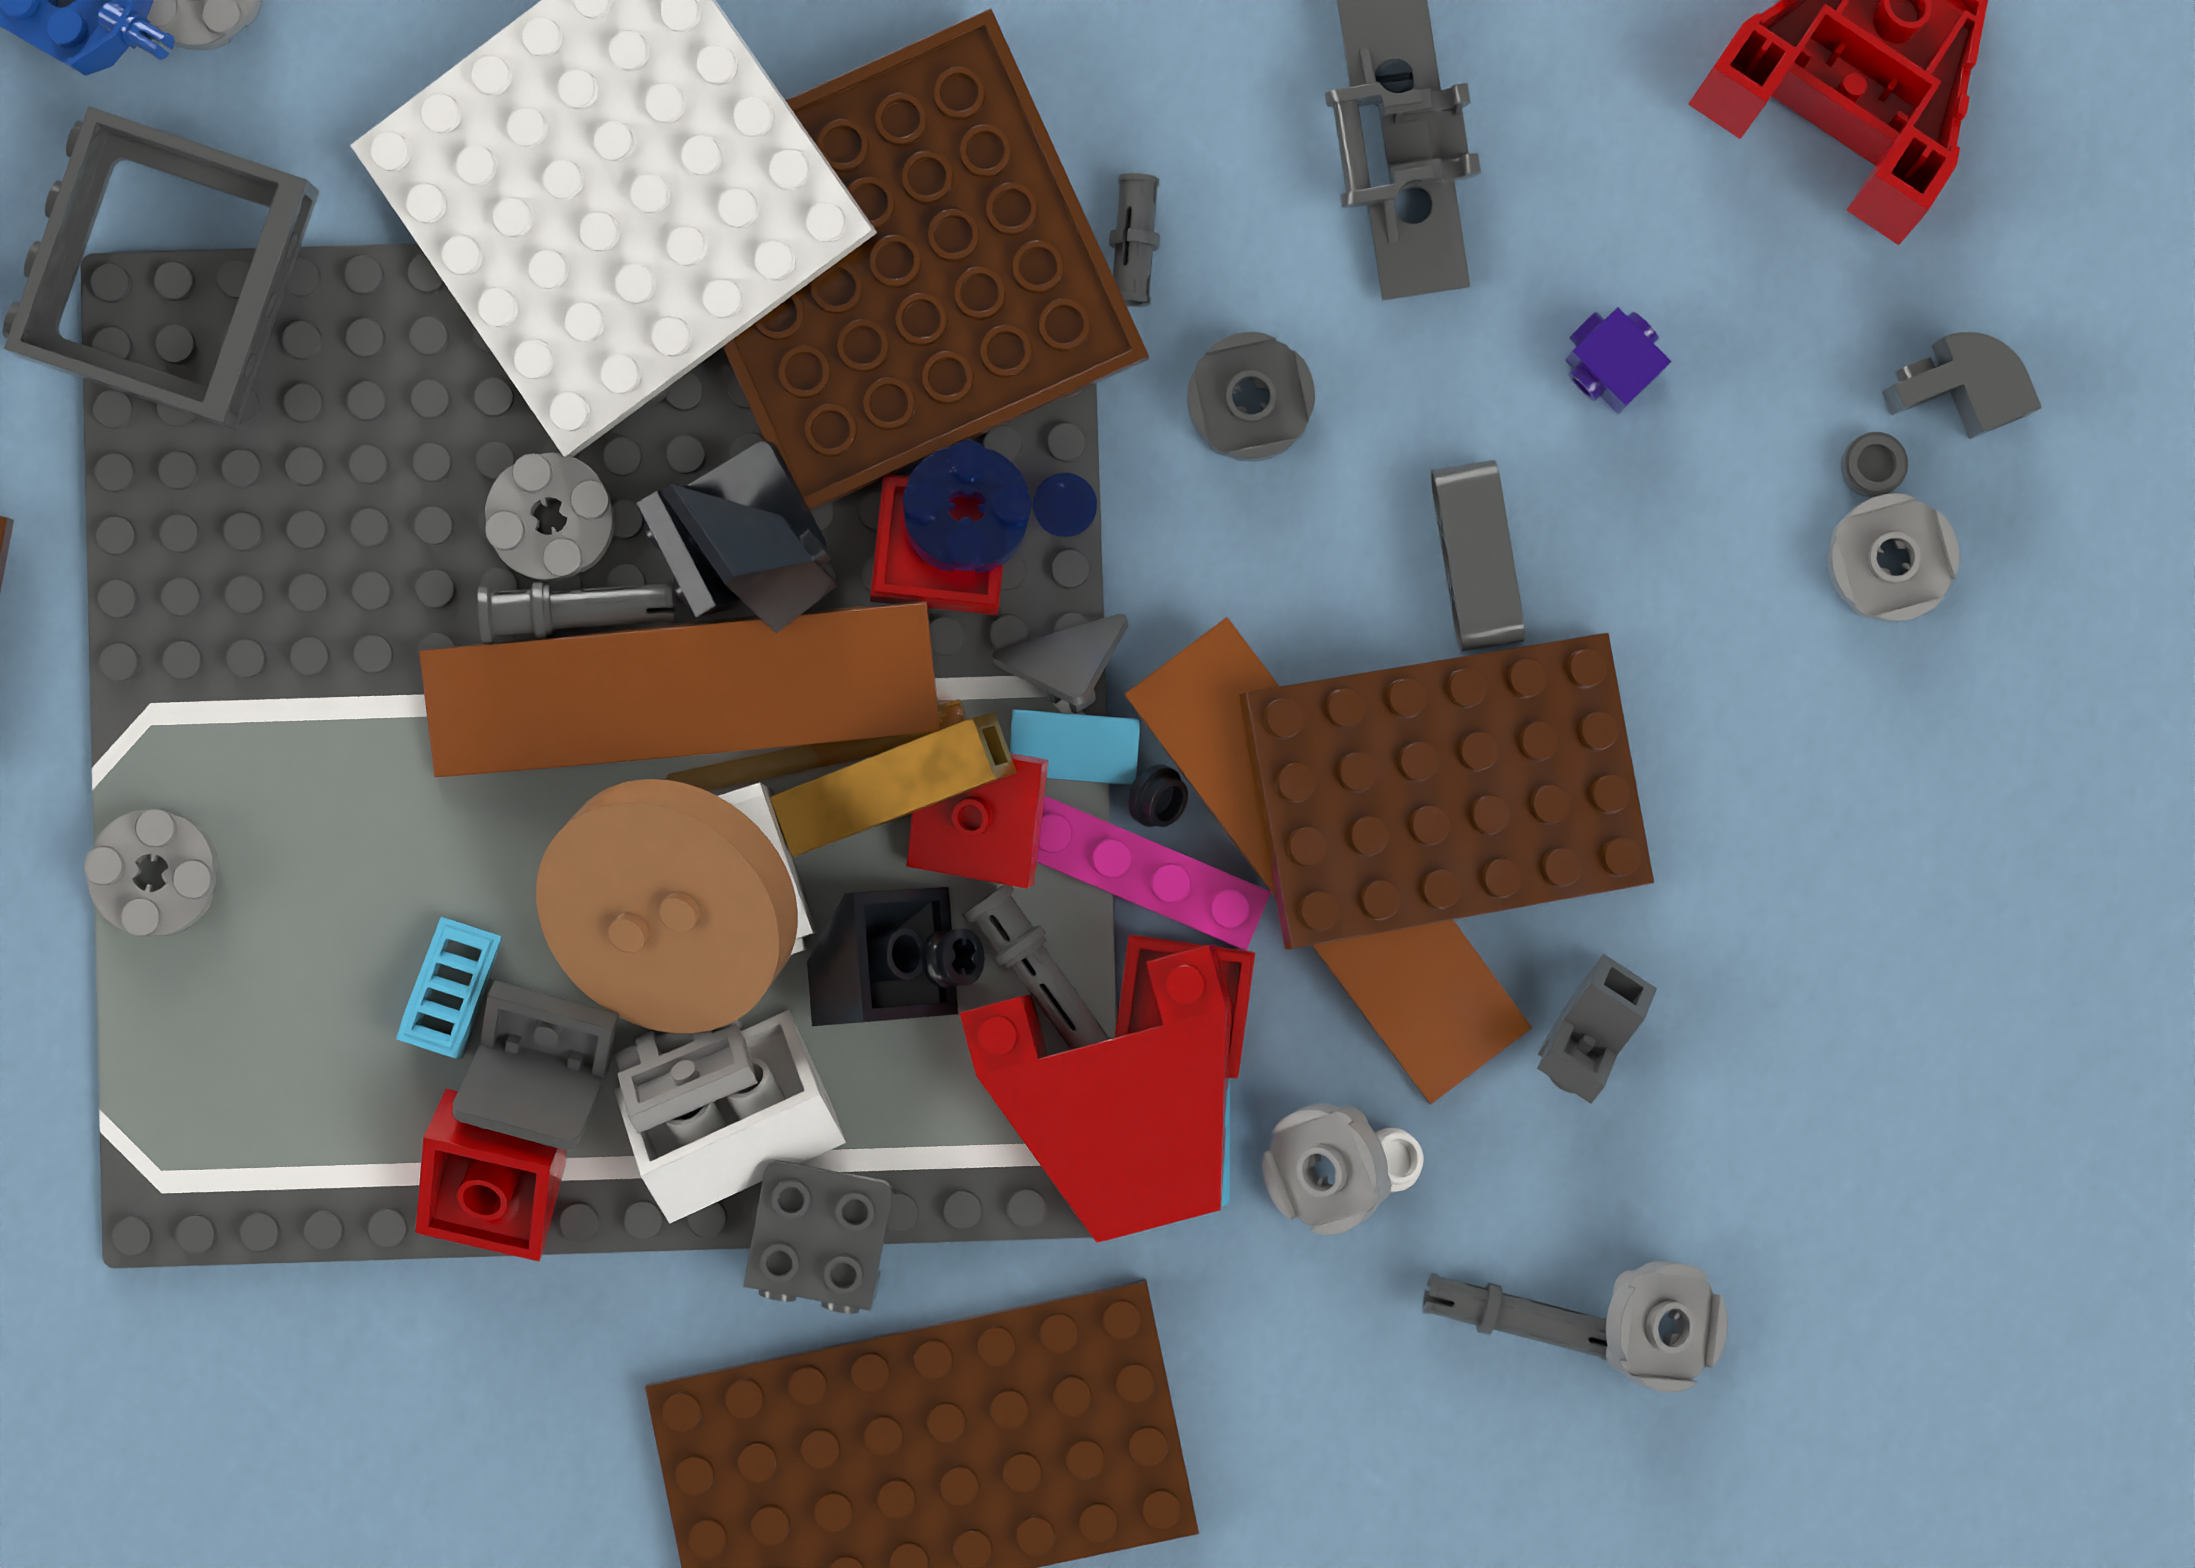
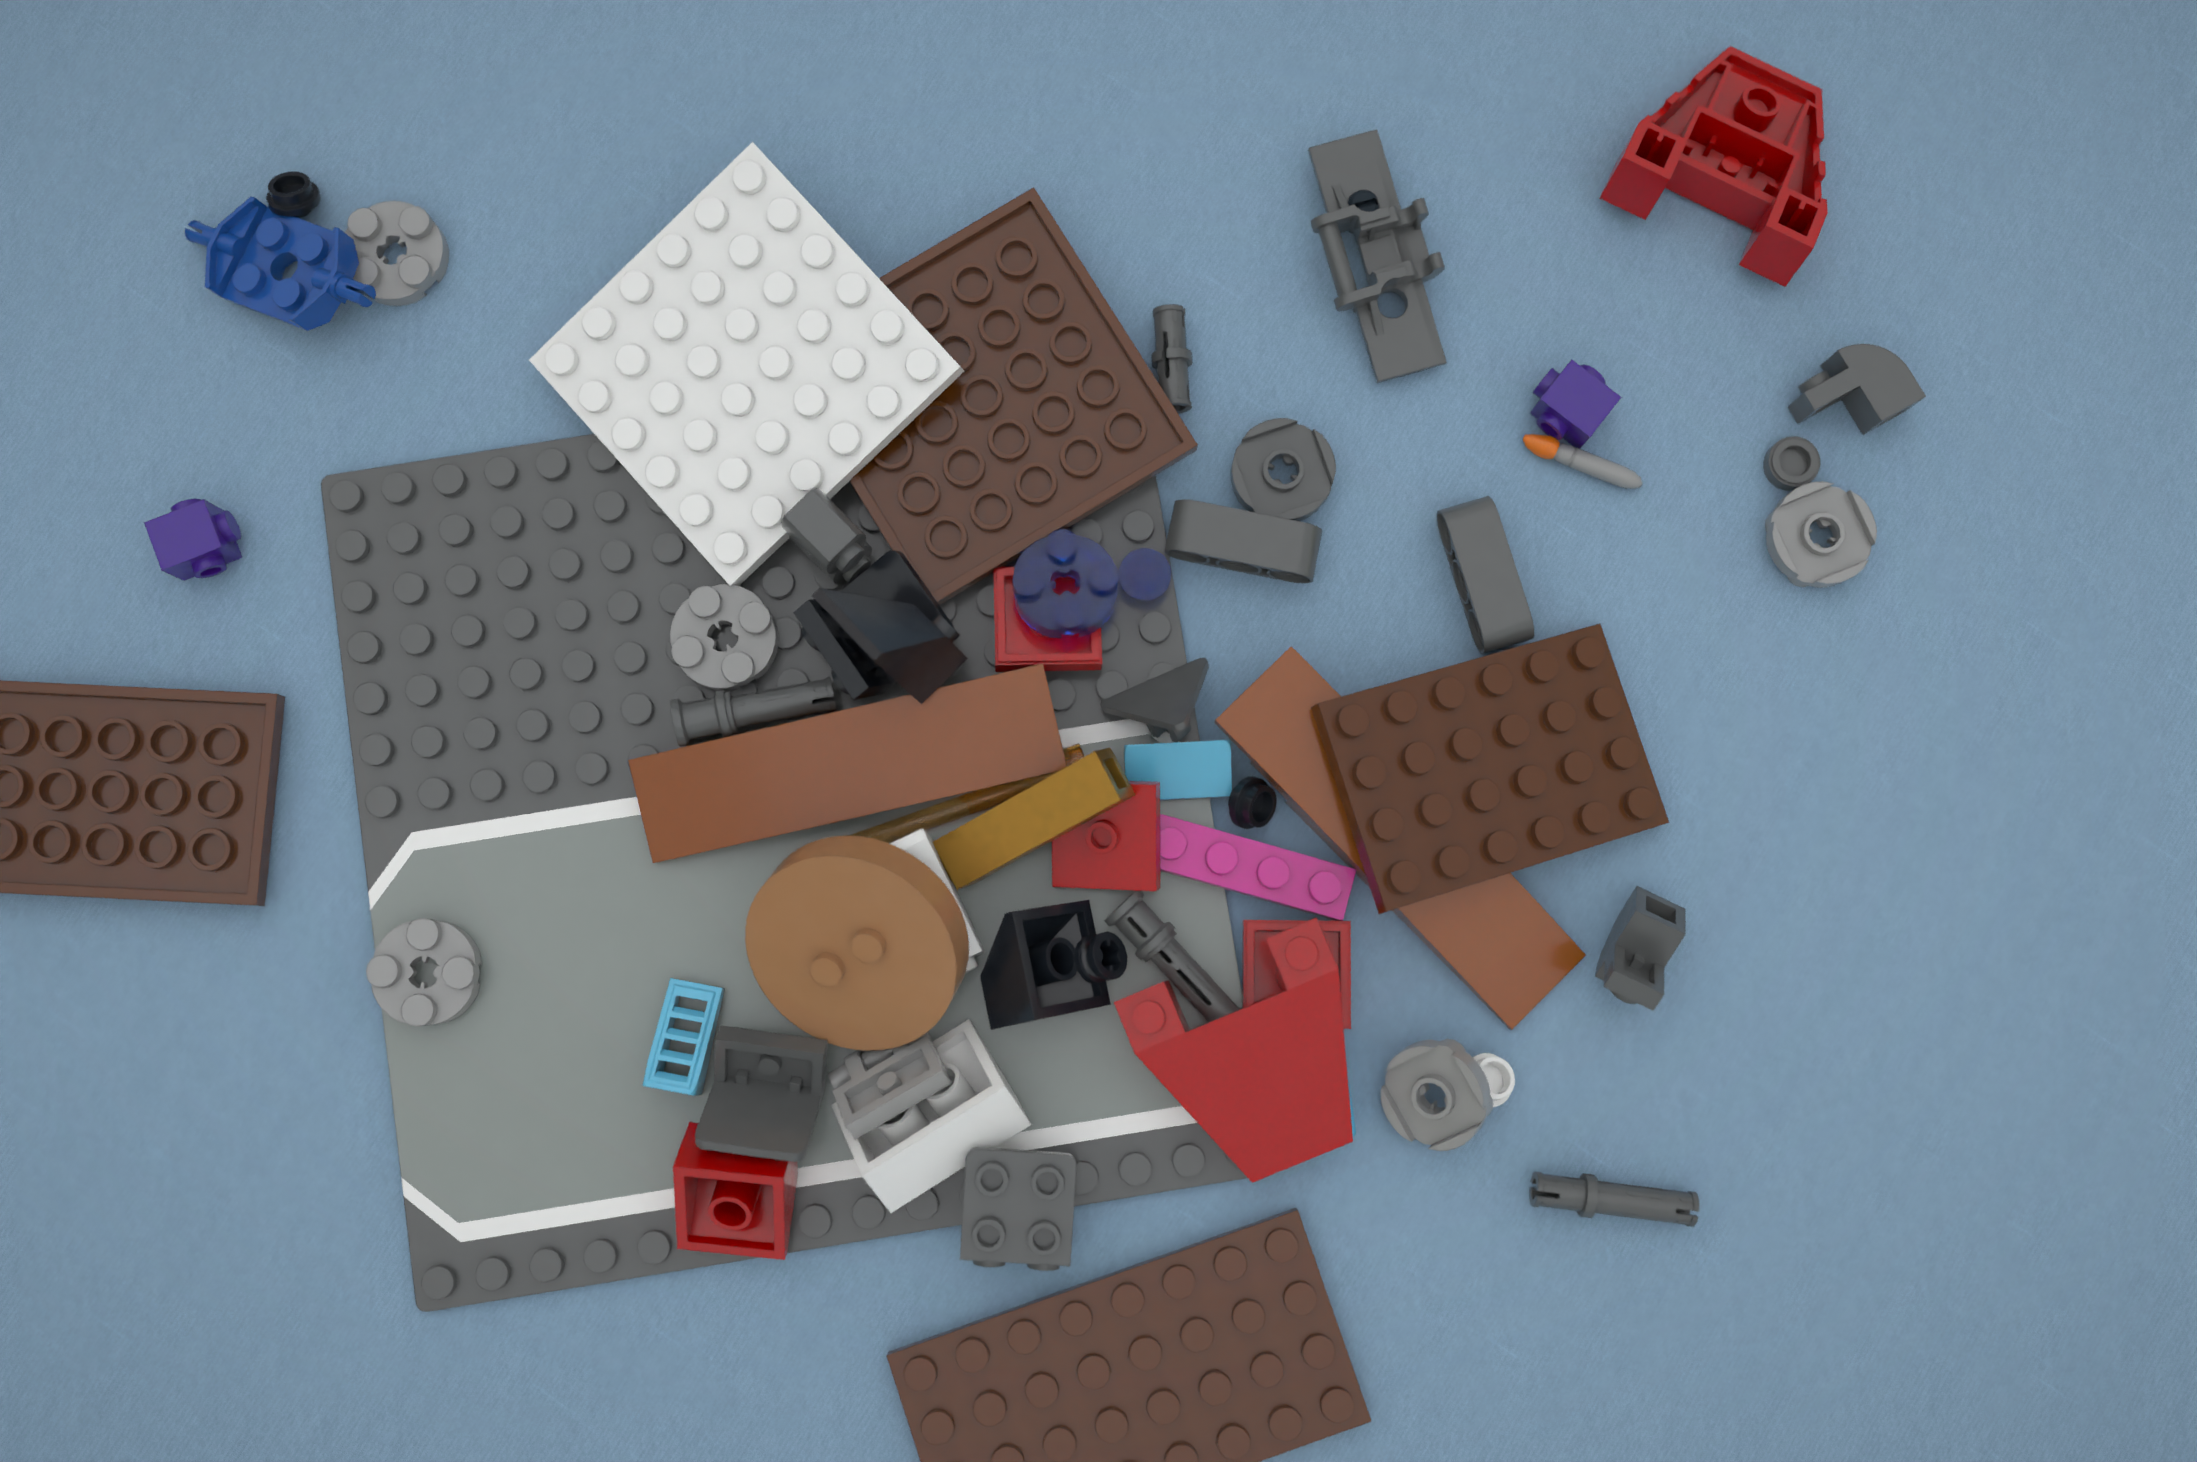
camera: 10 degrees left, 5 degrees down
(72, 209) = (307, 437): dark grey piece -> none
(689, 417) = (828, 537): none -> dark grey brick
(1190, 478) = (1243, 541): none -> dark grey beam
(1619, 429) = (1583, 461): none -> light grey piece
(1634, 1319) = (1713, 1191): light grey plate -> none

